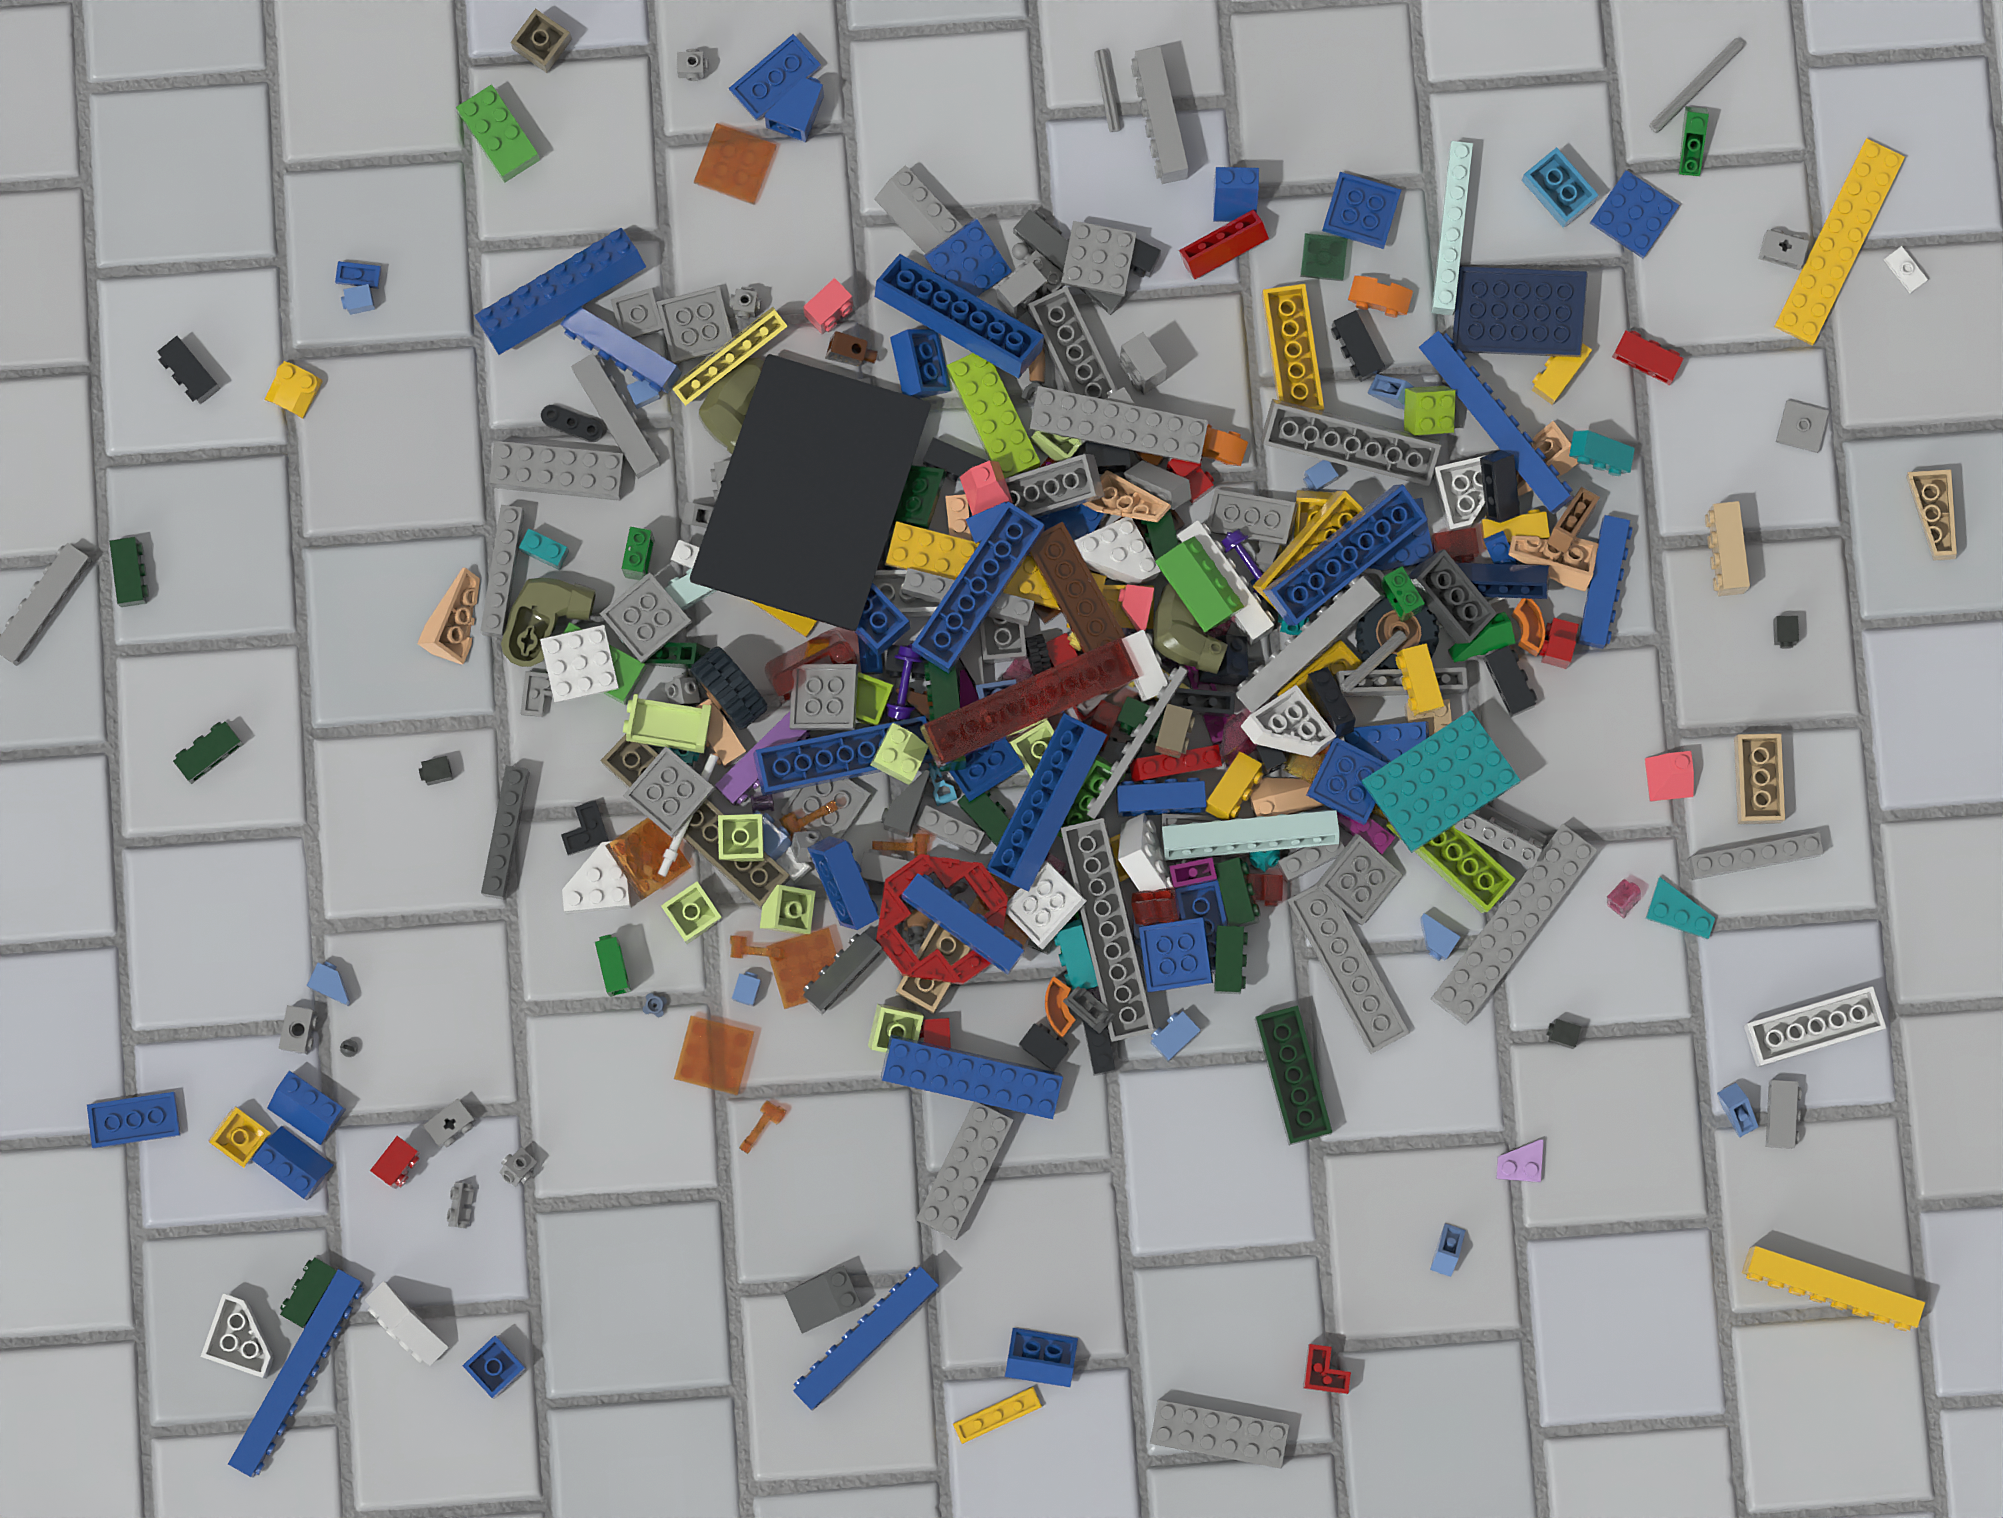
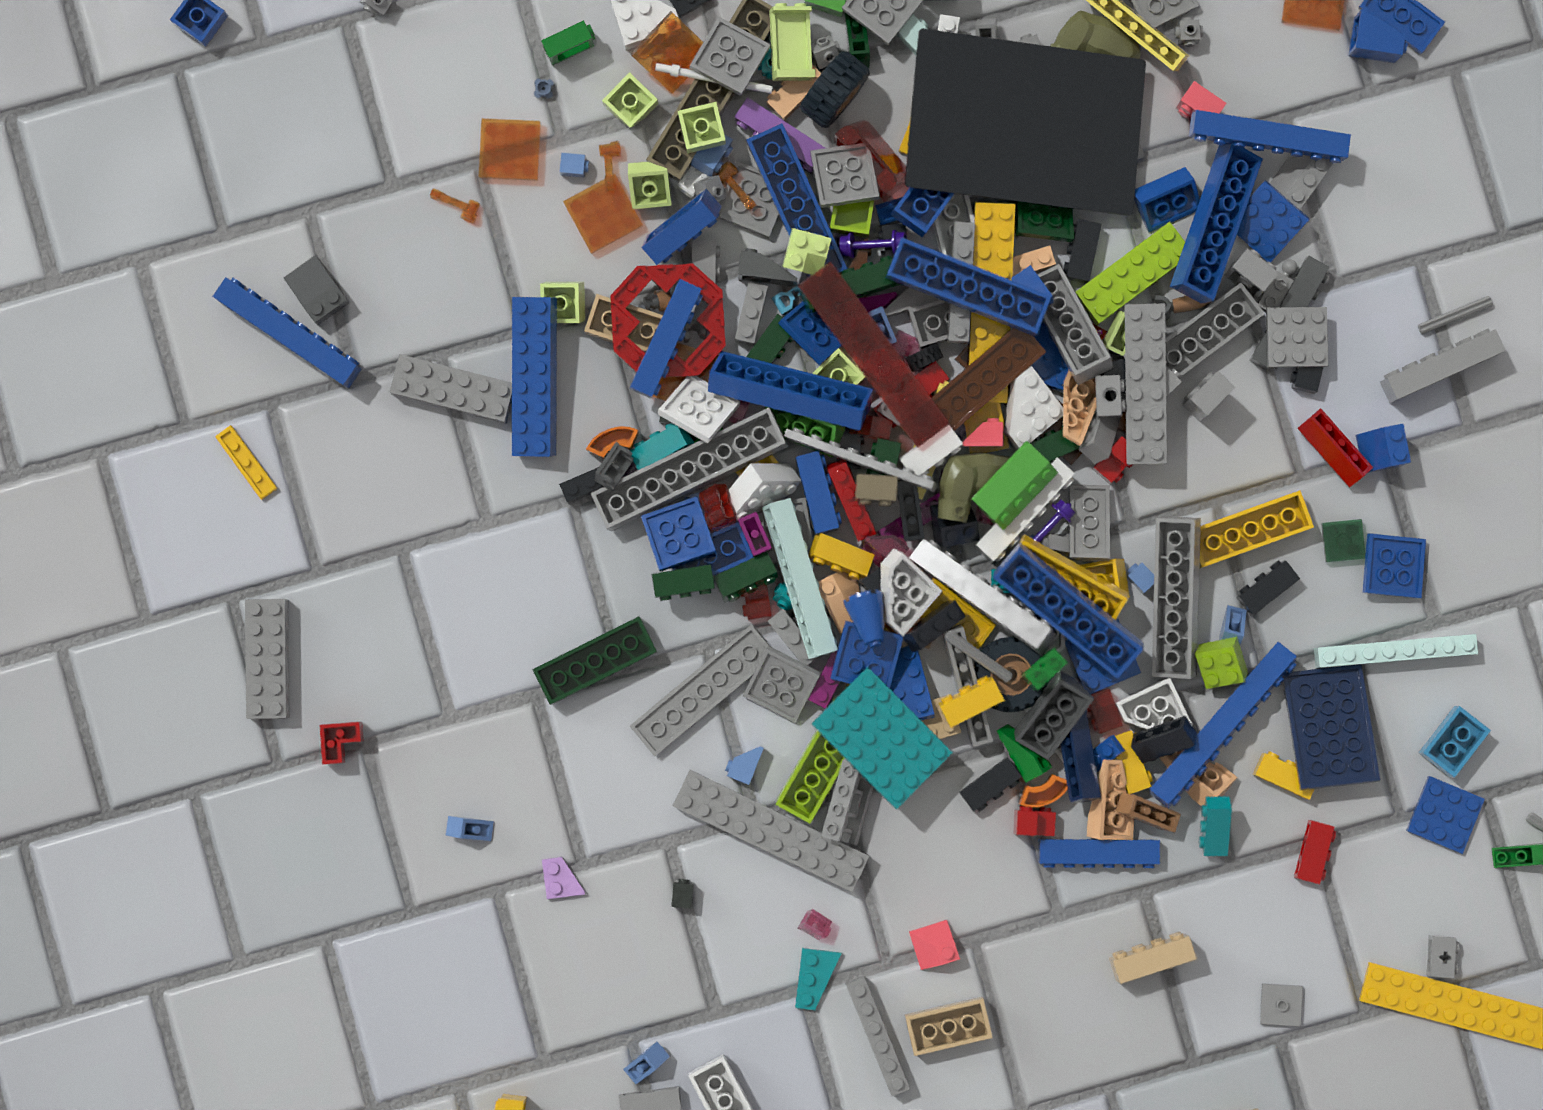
camera: 80 degrees right, 5 degrees up
(762, 803) = (740, 143): clear purple bush -> none
(841, 348) = (1165, 124): reddish brown torso -> none
(842, 973) = (602, 244): dark grey slope -> none
(880, 240) = (1269, 136): none -> blue brick
(918, 844) = (732, 289): clear orange brick -> none
(936, 1031) = (569, 339): red brick -> none
(985, 487) = (1064, 278): coral slope -> none
(1041, 1357) = (303, 489): blue slope -> none
(1044, 1046) = (576, 436): black brick -> none
(1110, 467) = (1104, 384): none -> light grey brick
(1174, 1035) = (609, 549): medium blue brick -> none
(1224, 446) = (1149, 483): orange brick -> none
(1308, 768) = (867, 615): none -> blue cone
(1390, 299) = (1317, 604): orange brick -> none
(1786, 631) = (1088, 1025): pearl dark grey brick -> none
(1905, 269) = (1447, 1072): white plate -> none

